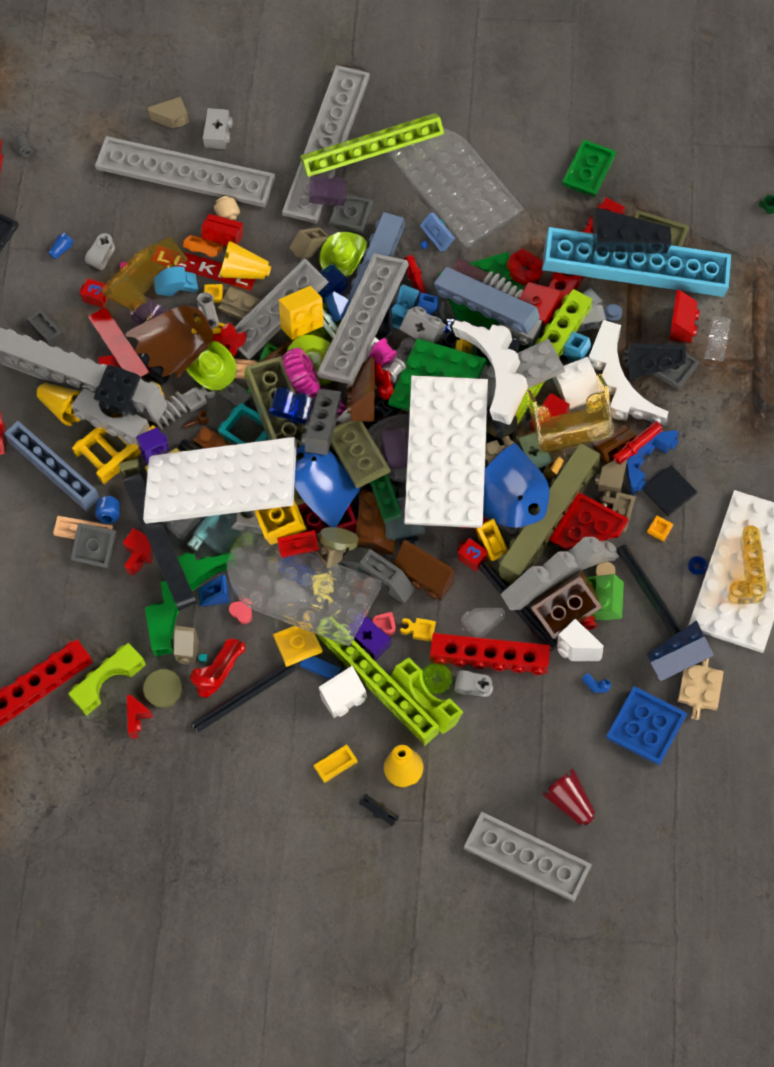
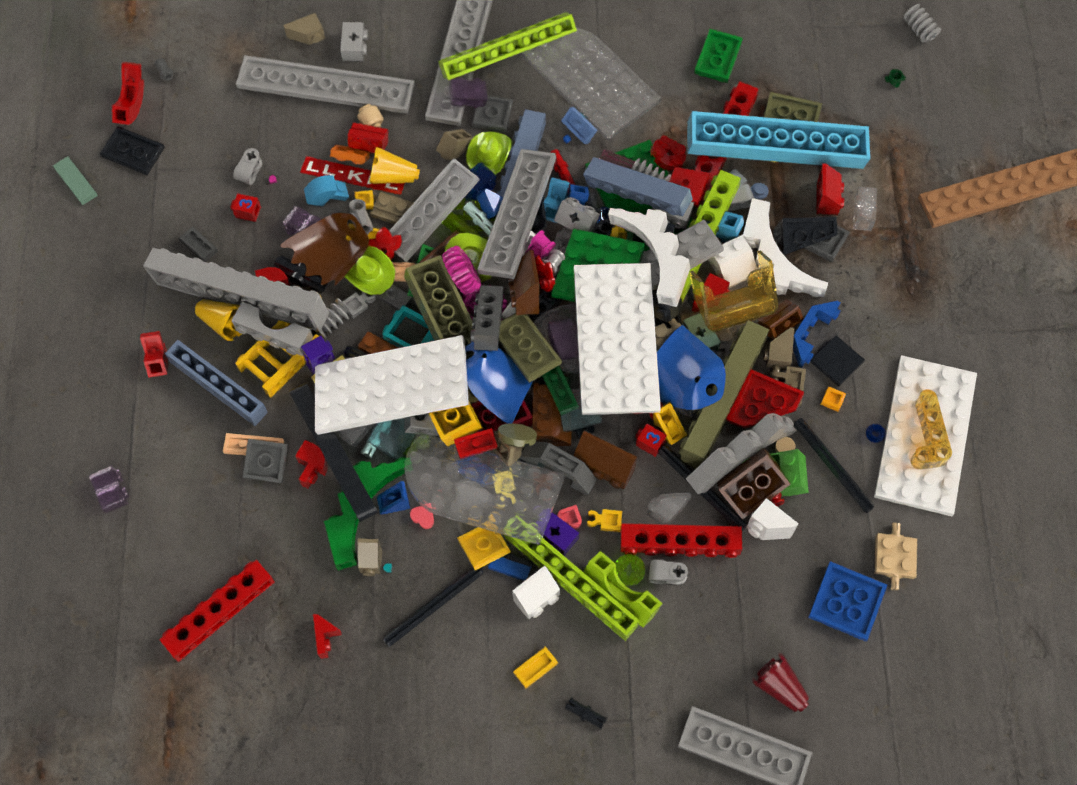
camera: 10 degrees left, 0 degrees up
(61, 245) = (208, 163): blue cone -> none
(107, 509) = (277, 423): blue head -> none
(117, 342) = (273, 255): sticker -> none
(117, 390) = (277, 301): black bracket -> none
(124, 662) = (307, 579): lime arch -> none
(130, 467) = (296, 378): olive tile -> none
(139, 272) = (288, 185): clear yellow windscreen -> none
(162, 688) = (349, 603): olive tile -> none
(203, 421) = (362, 325): reddish brown hand -> none
(211, 677) = (398, 588): red hair -> none
(290, 405) = (455, 304): clear blue brick -> none
(301, 312) = (455, 211): yellow brick -> none
(403, 766) = (605, 665): yellow cone -> none
(553, 468) = (723, 346): pearl gold tile -> none
(596, 686) = (791, 564): blue arm -> none
(628, 234) = (770, 112): black wedge -> none
(631, 448) = (797, 321): red pin -> none
(680, 652) = (873, 522): wedge -> none

